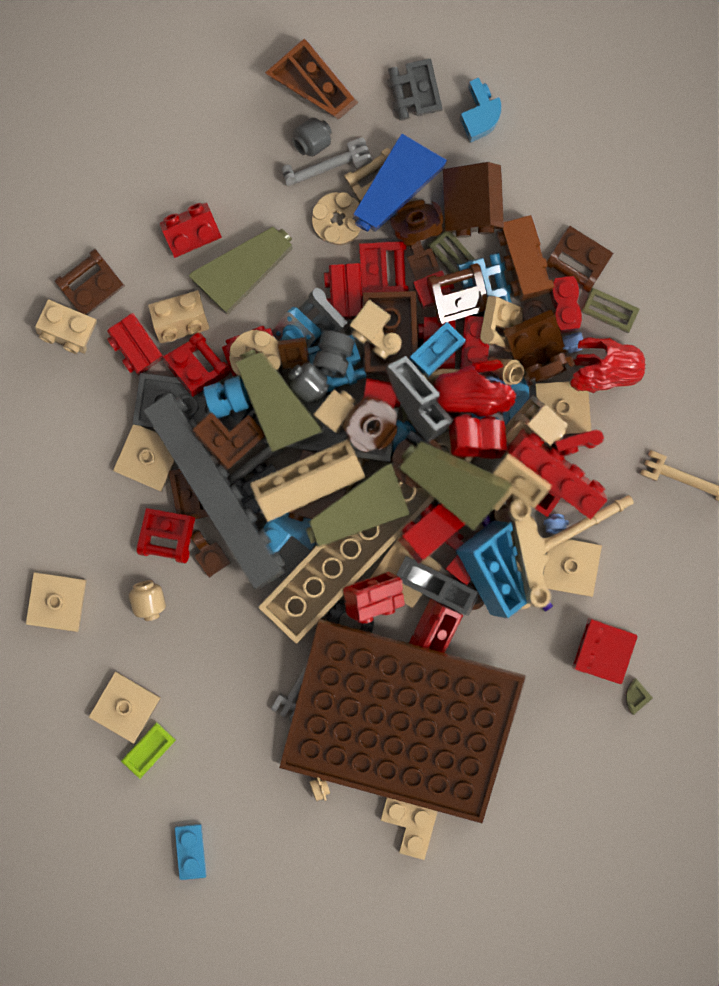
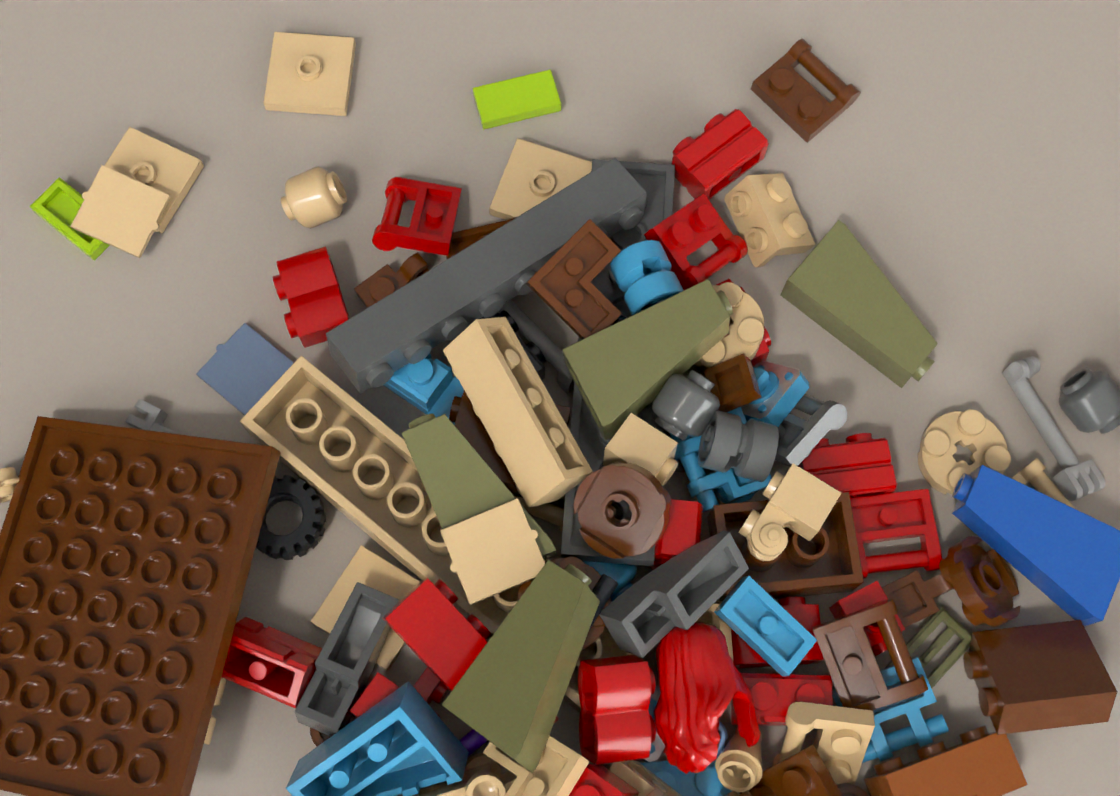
camera: 80 degrees right, 15 degrees down
(65, 327) = (735, 55): tan bracket -> none
(83, 469) = (516, 99): none -> lime tile
(149, 720) = (120, 211): none -> tan piece
(190, 229) = (908, 226): red bracket -> none
(214, 601) = (312, 296): none -> red brick
(256, 643) = (244, 368): none -> sand blue piece
(374, 597) = (322, 546): red brick -> none
(390, 497) = (493, 551): none -> tan piece

